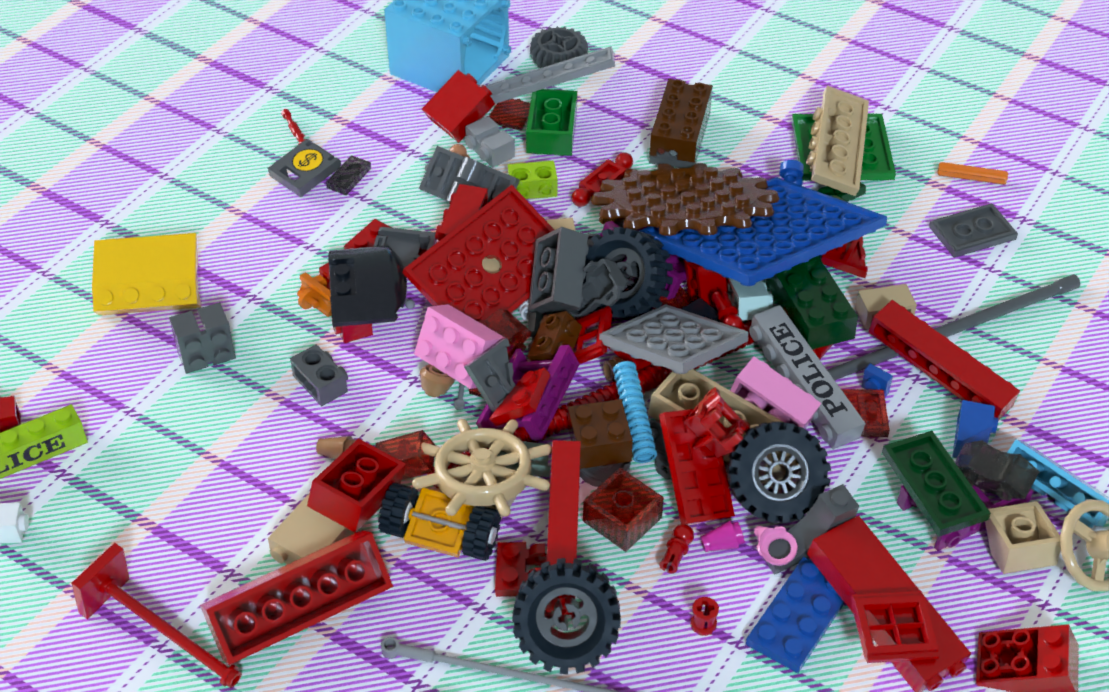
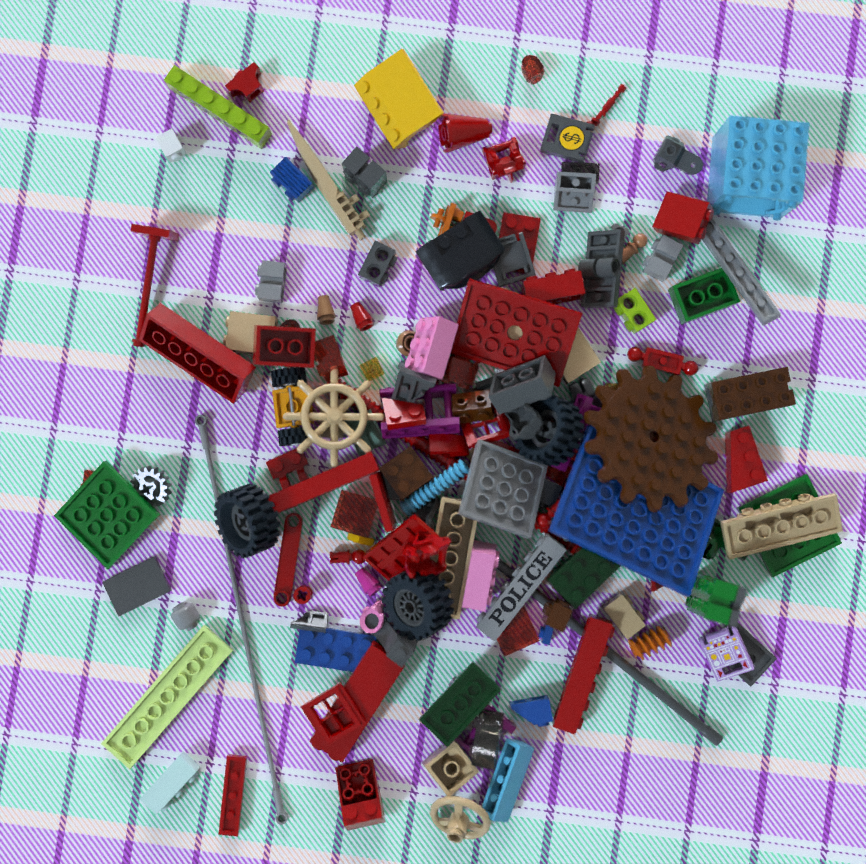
camera: 70 degrees right, 40 degrees up
(151, 418) = (291, 179): none -> blue brick
(192, 384) = (336, 199): none -> tan piece
(208, 167) = (532, 69): none -> clear red piece
(224, 245) = (462, 131): none -> red cone
(261, 488) = (271, 281): none -> light grey brick
(288, 222) = (506, 165): none -> red piece
(365, 179) = (574, 192): none -> light grey brick
(372, 415) = (361, 317): none -> red cone
(389, 99) = (674, 155): none -> dark grey piece
(443, 430) = (372, 369): none -> clear yellow tile
(511, 114) = (703, 258): clear red piece -> none
(557, 45) = (787, 247): dark grey gear -> none
(586, 380) = (448, 444): none -> red slope
(605, 457) = (383, 501): none -> red tile
(659, 520) = (360, 540): none -> yellow tile
(662, 625) = (288, 559): none -> red piece
(749, 152) = (742, 460): none -> red wedge
(749, 619) = (312, 621): none -> dark grey tile
(792, 171) = (727, 502): blue plate -> none
(857, 345) = (556, 614): none -> reddish brown brick
(904, 193) = (716, 600): none -> green piece
(929, 294) = (649, 642): none -> orange piece
(966, 234) = (724, 651): none -> lavender container
(972, 173) = (807, 633): orange axle -> none

